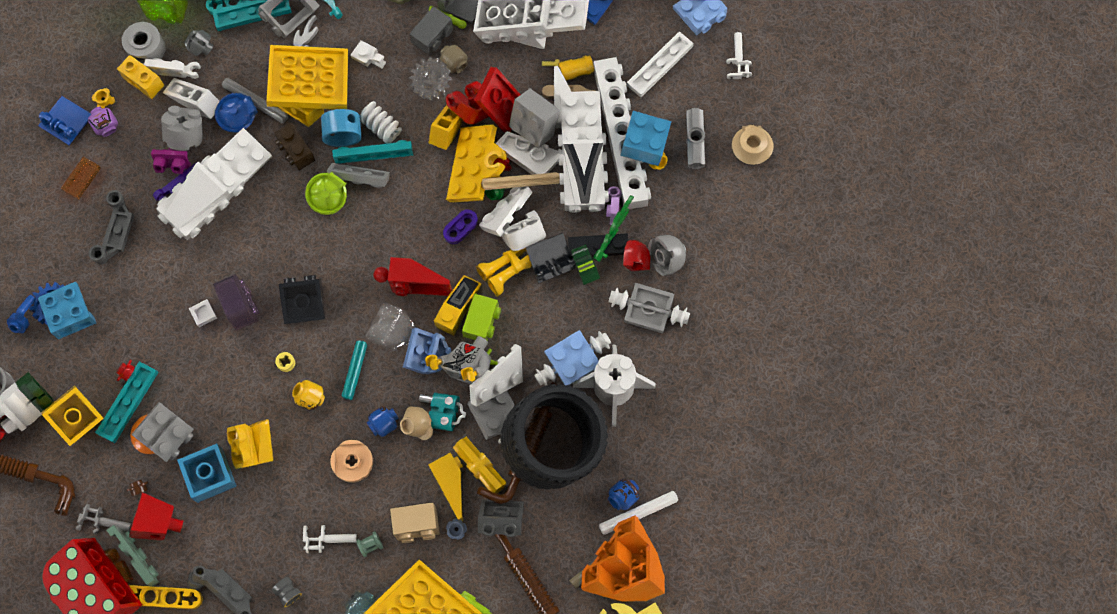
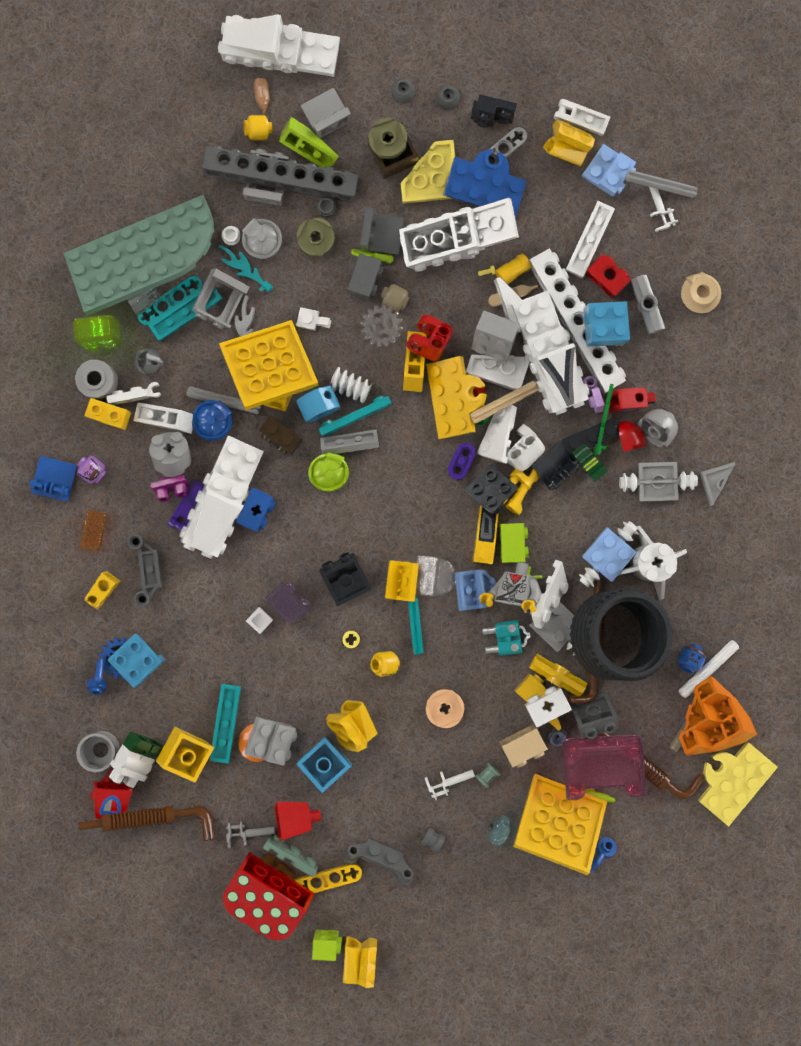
camera: 20 degrees left, 15 degrees up
(63, 234) = (101, 589): none -> yellow leg
(103, 93) = (74, 446): yellow plate -> none
(125, 371) = (212, 696): red plate -> none
(137, 487) = (267, 795): reddish brown plate -> none
(244, 198) = (255, 499): none -> blue brick
(356, 319) = (401, 581): none -> yellow bracket
(382, 421) = (458, 664): blue head -> none
(411, 277) = (435, 527): red slope -> none
(416, 423) = (490, 657): tan piece -> none
(464, 490) = (557, 708): none -> white brick
(478, 260) = (491, 489): none -> black hinge
(488, 569) = (603, 764): none -> clear pink windscreen
(497, 98) = (457, 329): red plate -> none
(646, 219) = (630, 400): none -> red torso
(665, 90) = (609, 286): none -> red brick
(708, 326) = (714, 480): none -> light grey tile
(745, 34) = (660, 183): none -> light grey axle

